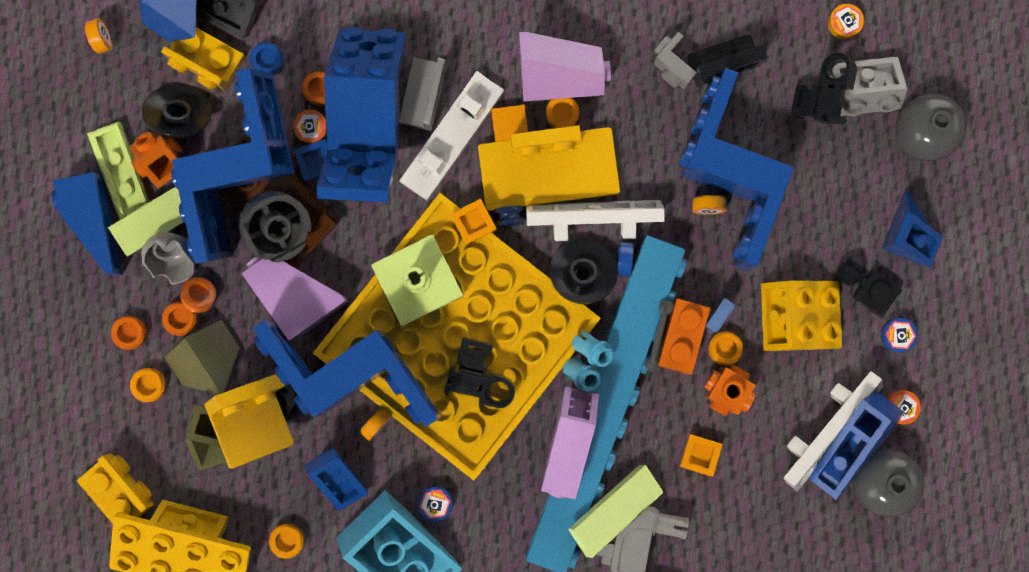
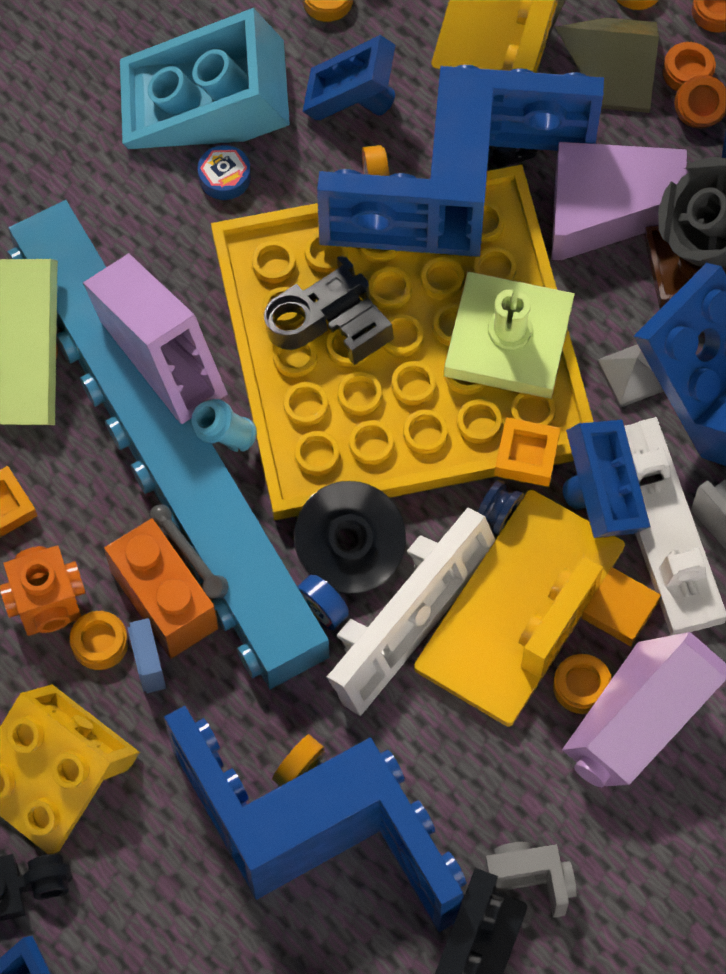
camera: 130 degrees right, 20 degrees down
(382, 214) = (629, 376): none -> light grey slope
(458, 173) = (605, 479): none -> blue tile
(597, 352) = (232, 457): medium azure pin -> none

